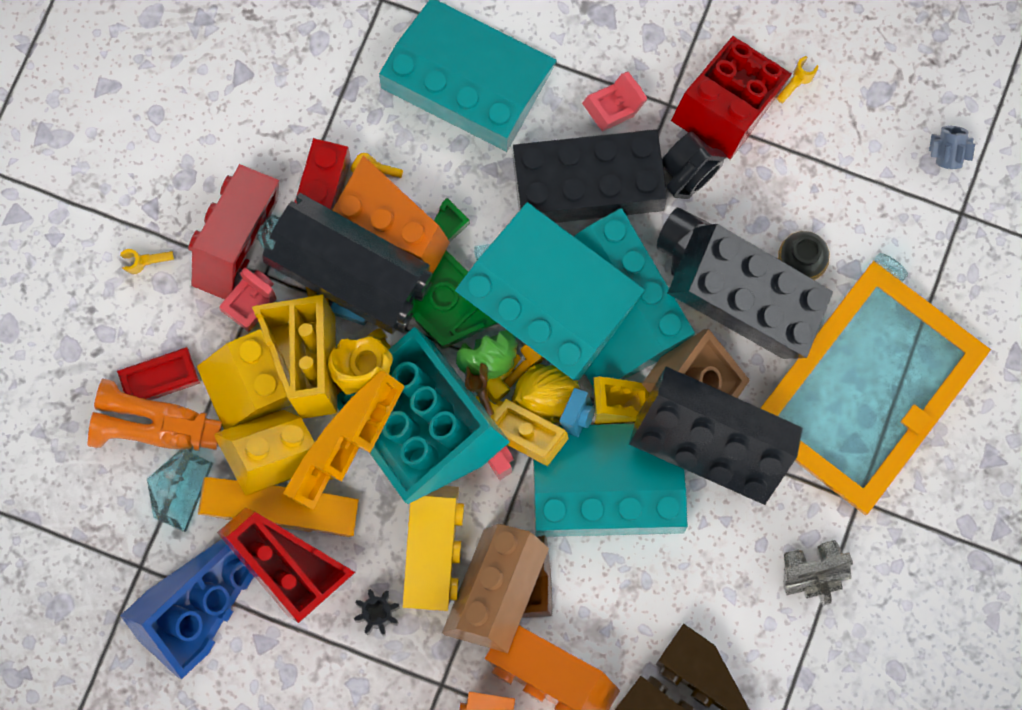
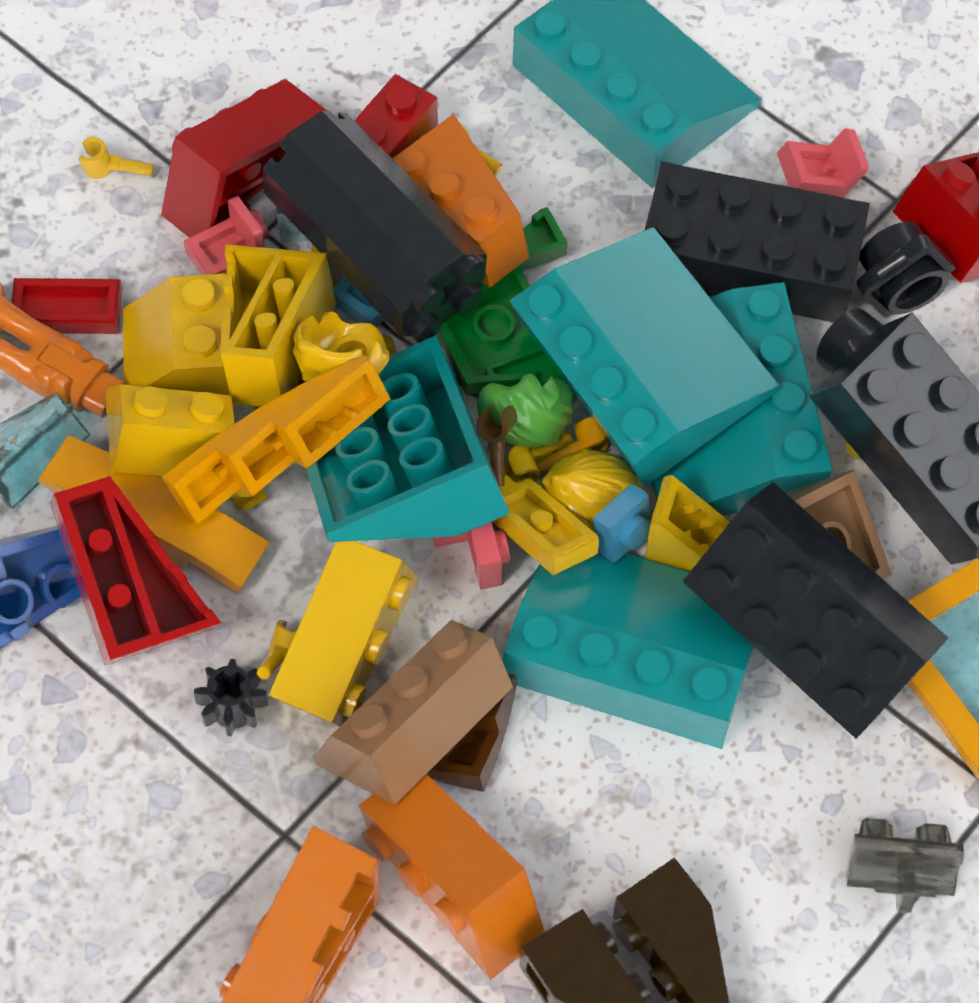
camera: 20 degrees right, 15 degrees down
(395, 568) = (278, 649): none -> yellow hand

